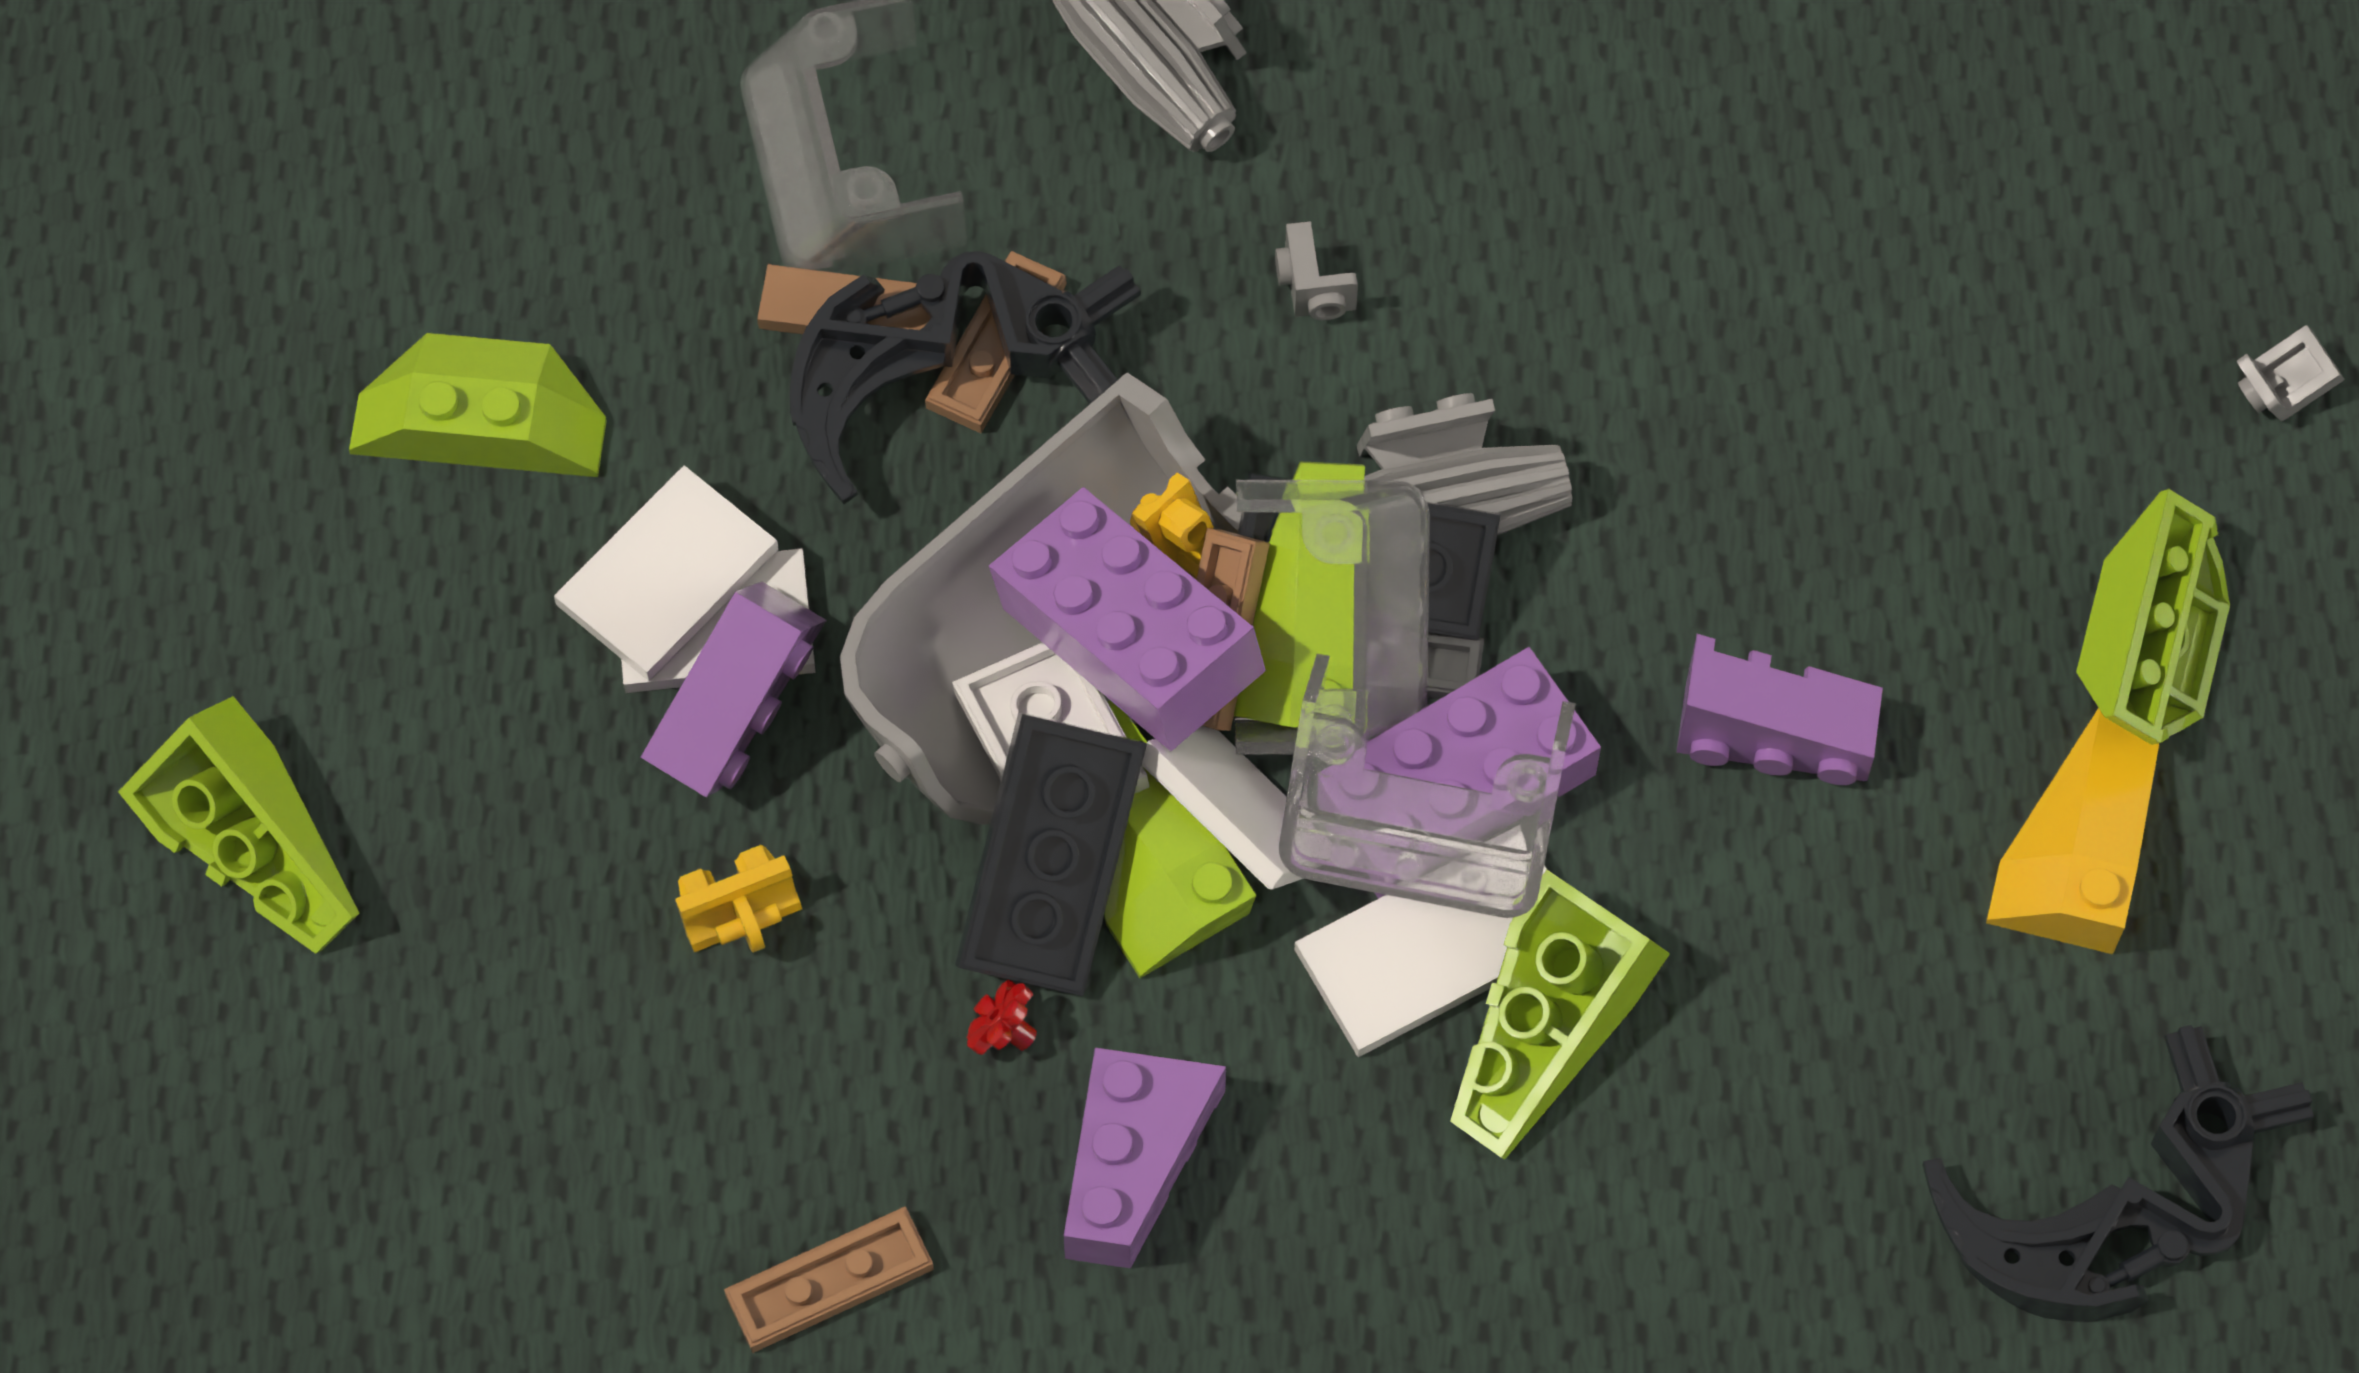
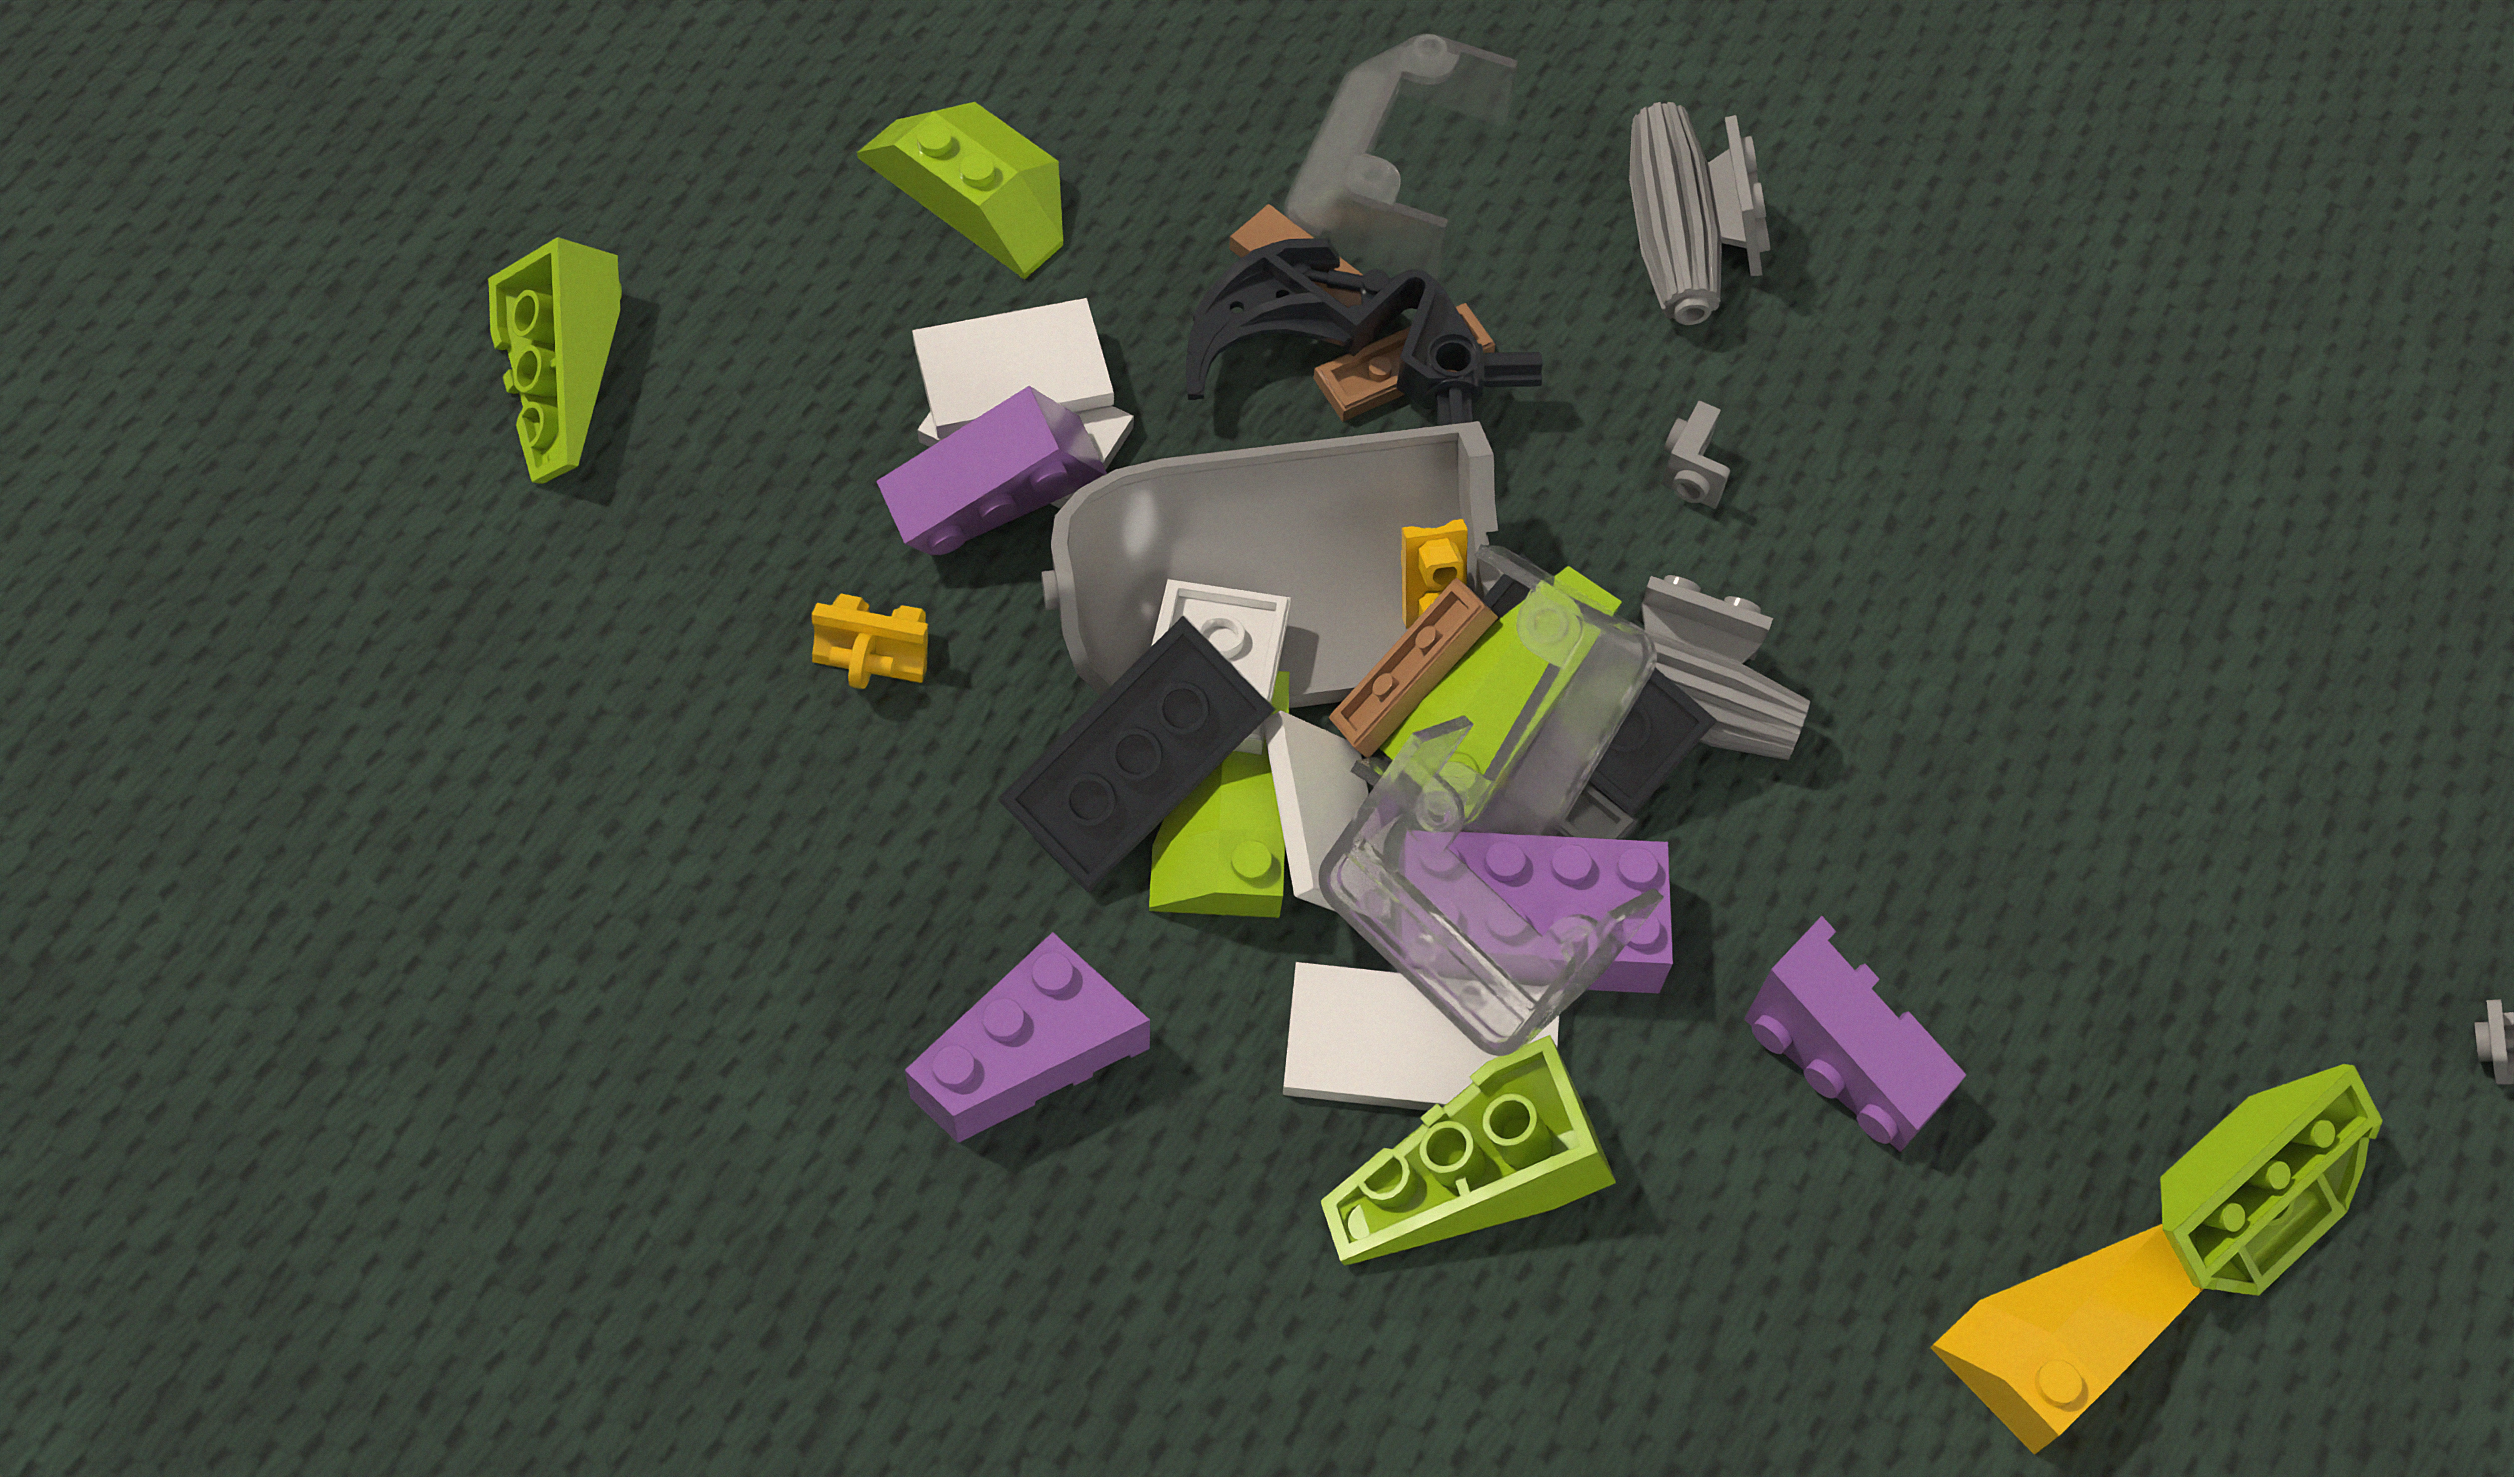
camera: 30 degrees right, 5 degrees down
(828, 1279) = (705, 984): medium nougat tile -> none
(1002, 1020) = (1005, 868): red plant -> none
(1127, 618) = (1338, 608): medium lavender brick -> none

